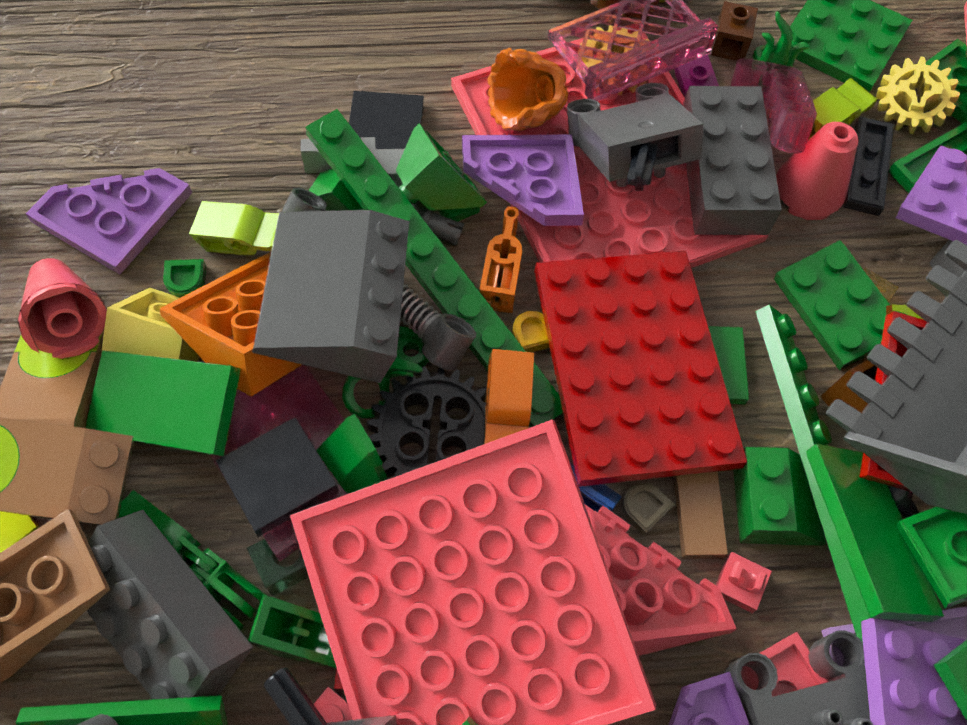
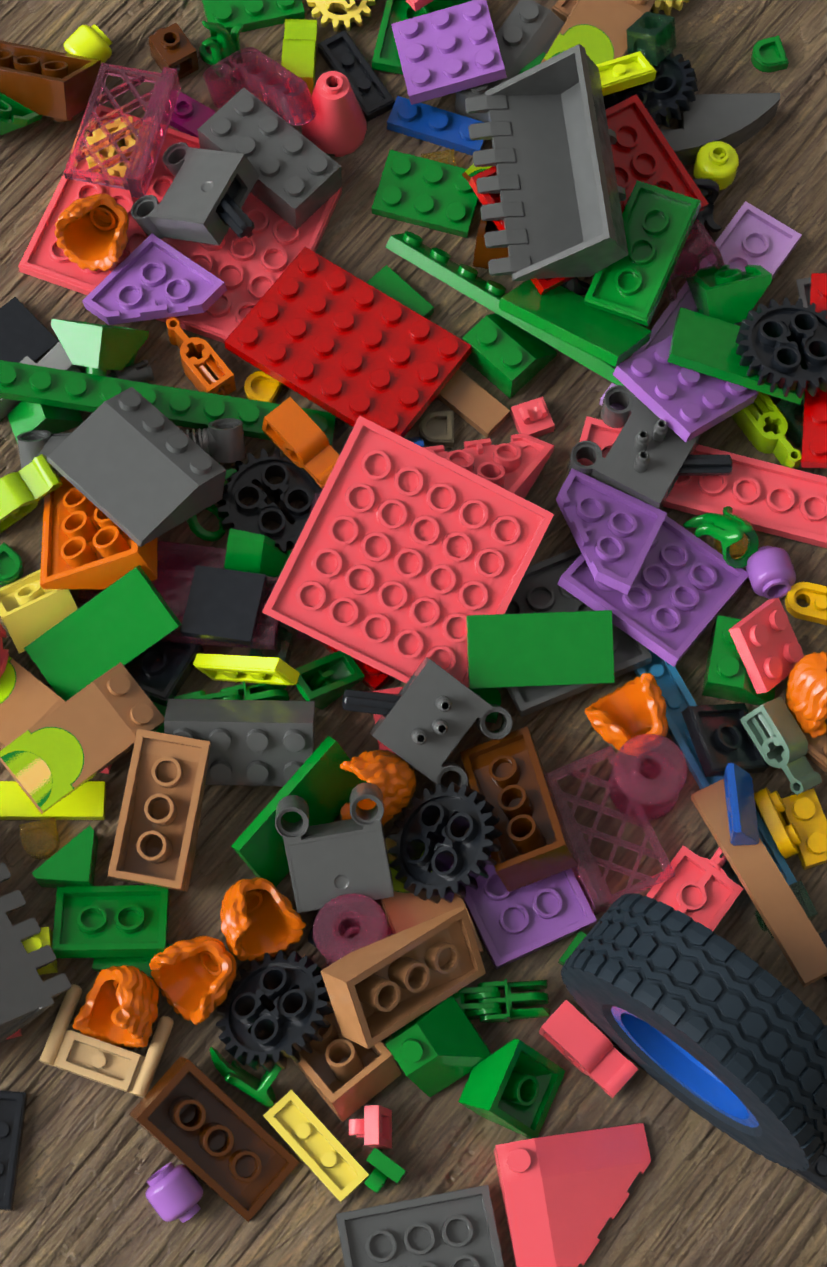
camera: 45 degrees left, 5 degrees up
(179, 479) = (163, 669): none -> black tile
(237, 555) = (246, 668): none -> neon yellow tile
(898, 253) = (433, 125): none -> blue plate

